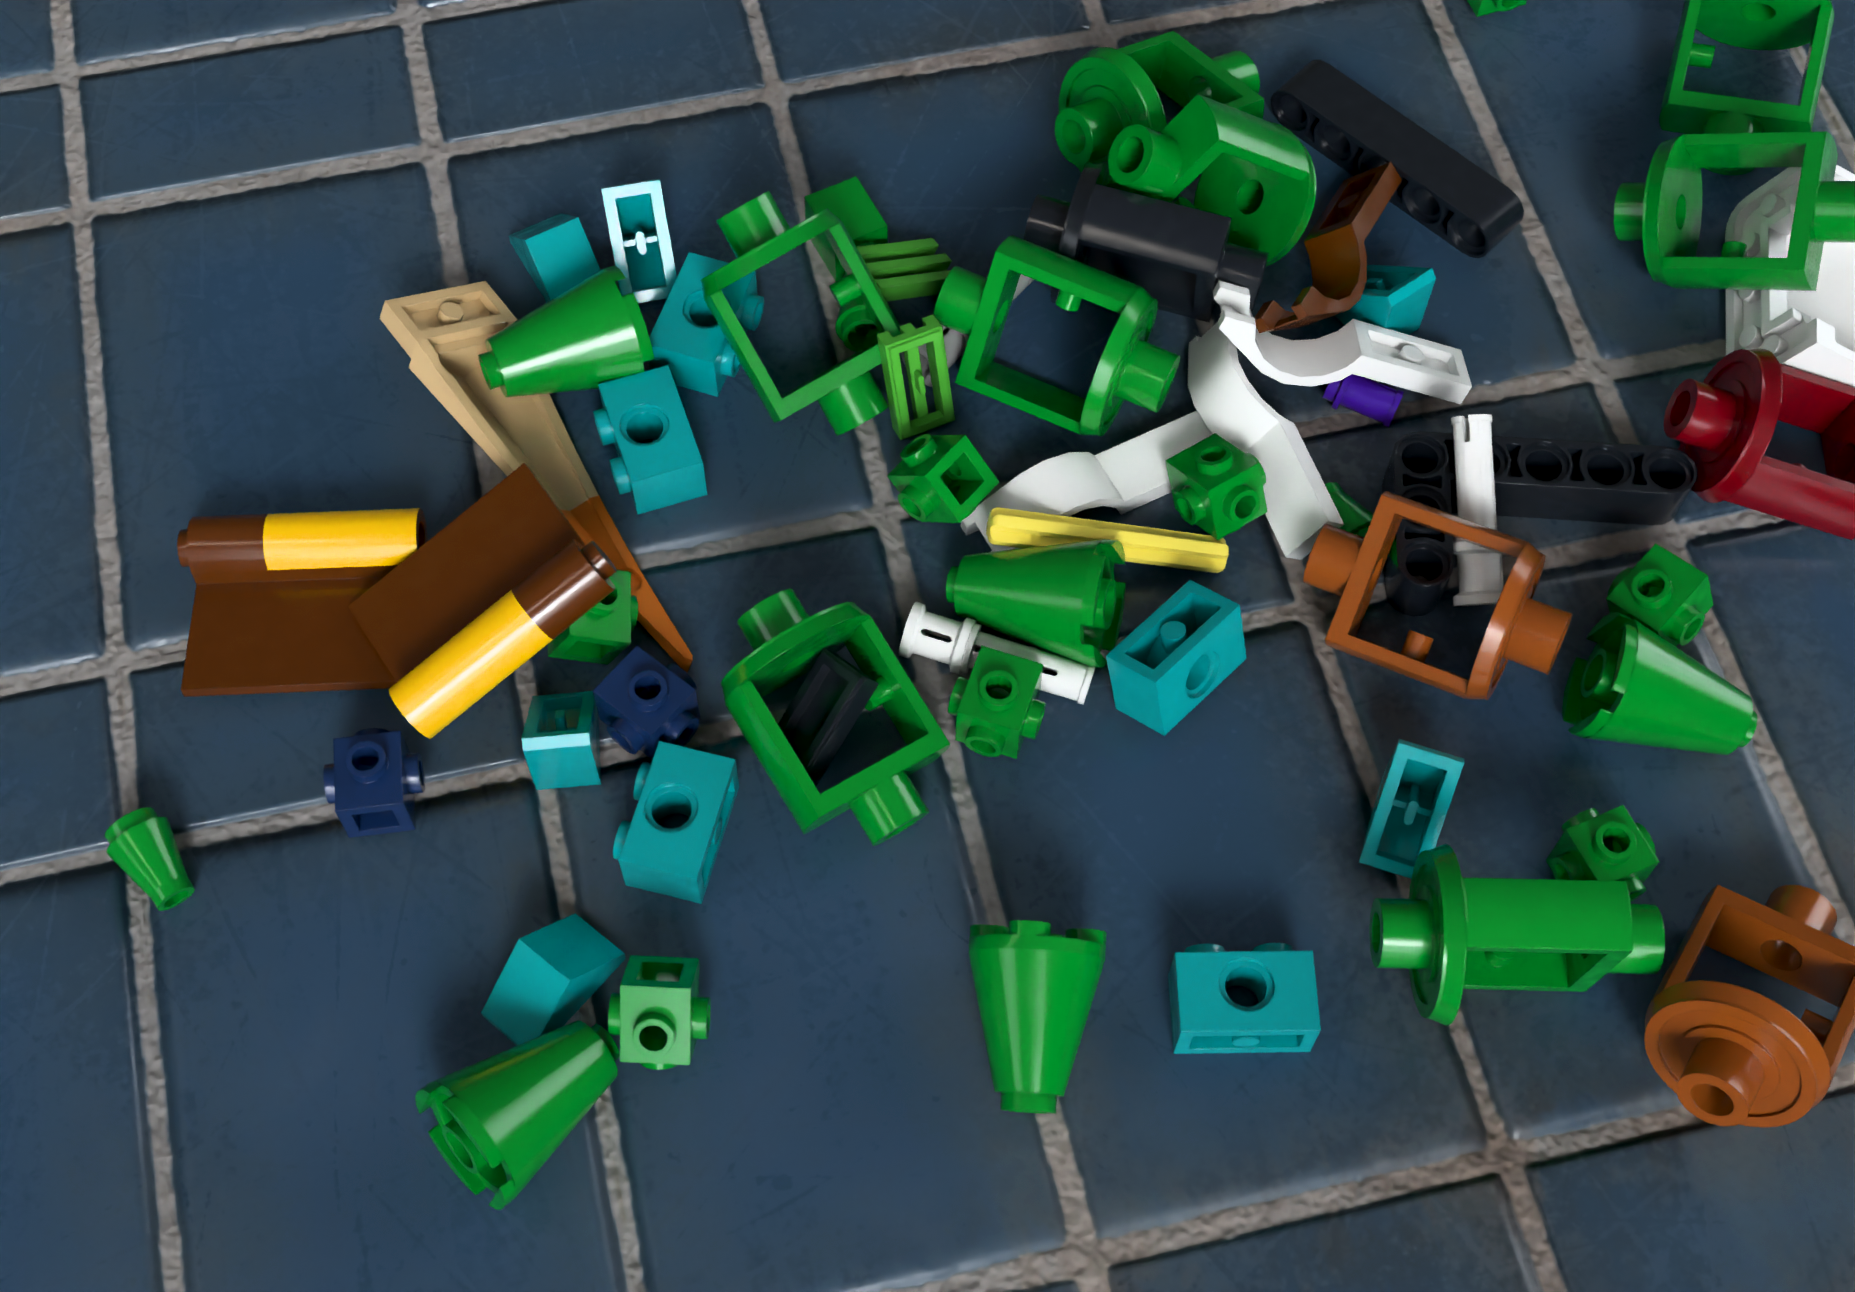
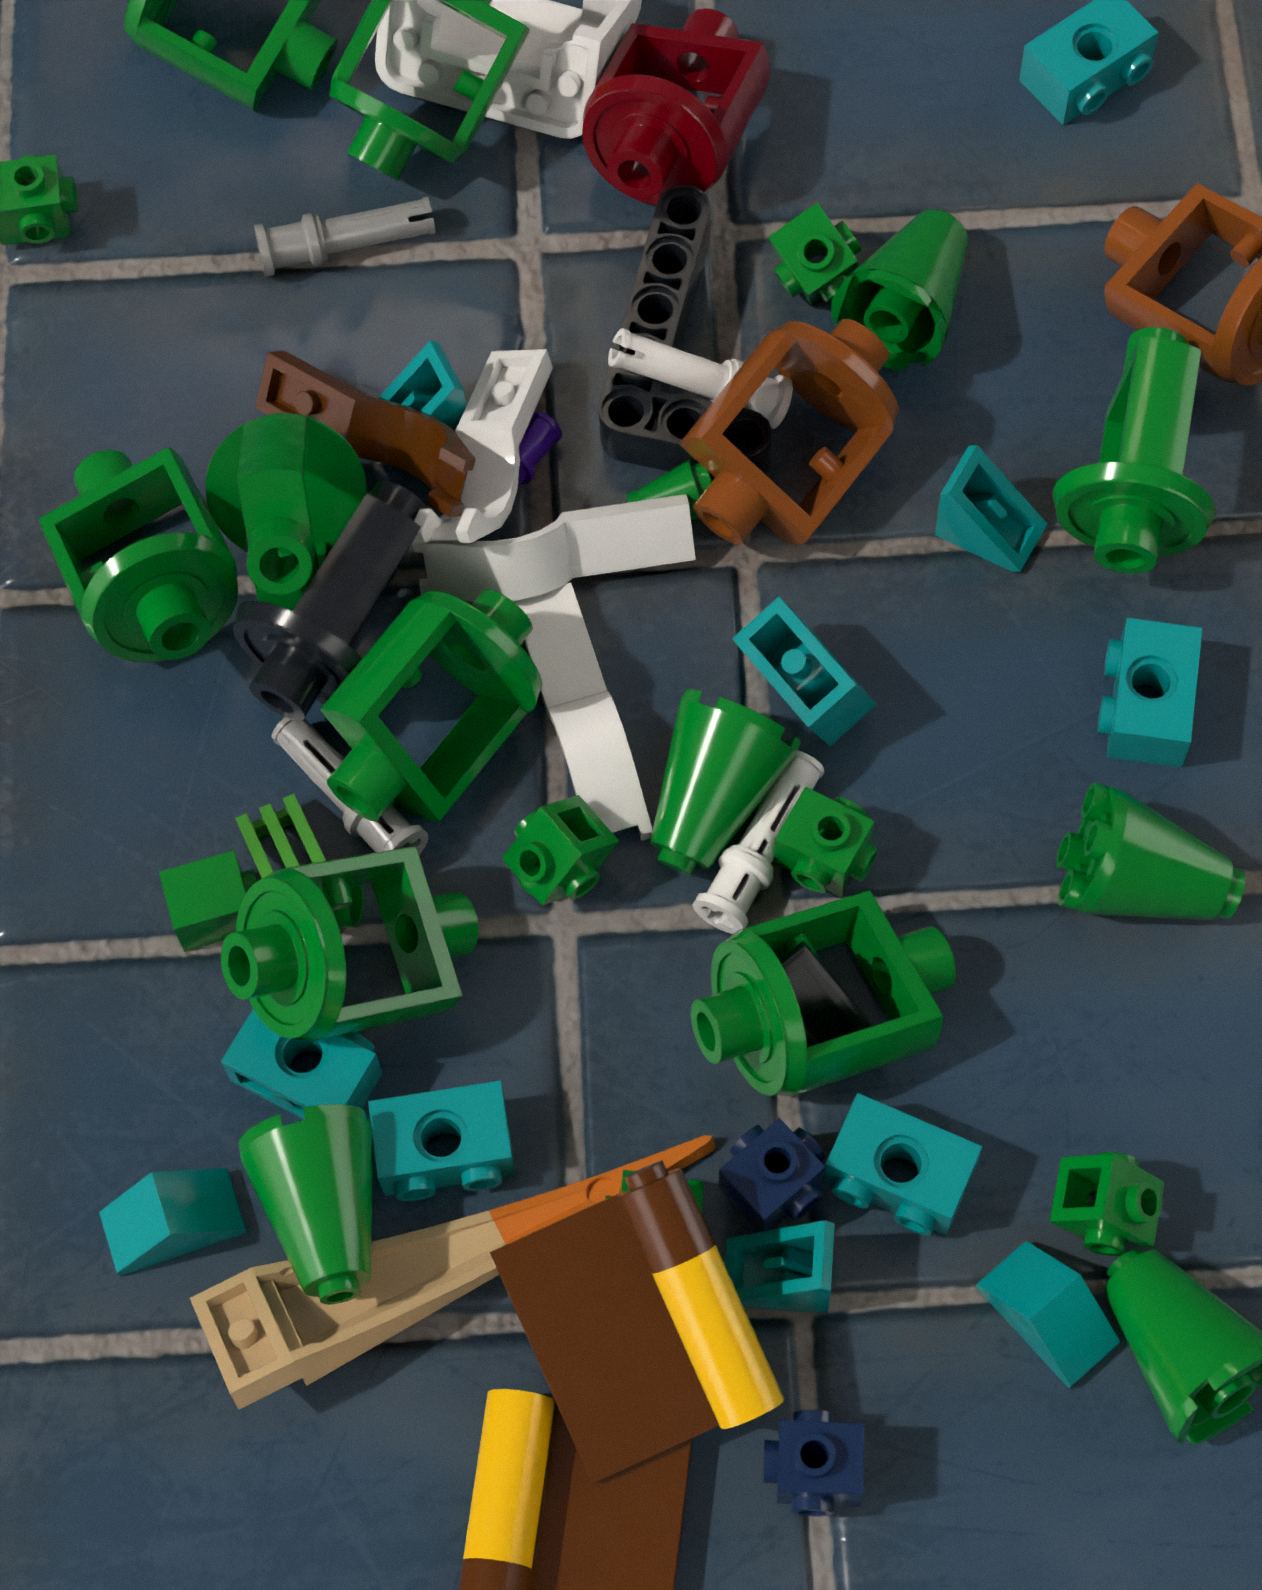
camera: 75 degrees left, 5 degrees up
(640, 239) = (181, 1120): teal slope -> none
(908, 342) = (435, 845): bright green tile -> none
(1139, 543) = (659, 711): light yellow axle -> none
(1217, 486) = (618, 598): green brick -> none
(1364, 132) = (229, 357): black beam -> none
(1538, 194) = (315, 238): none -> light grey pin
(1604, 849) = (1060, 370): green brick -> none

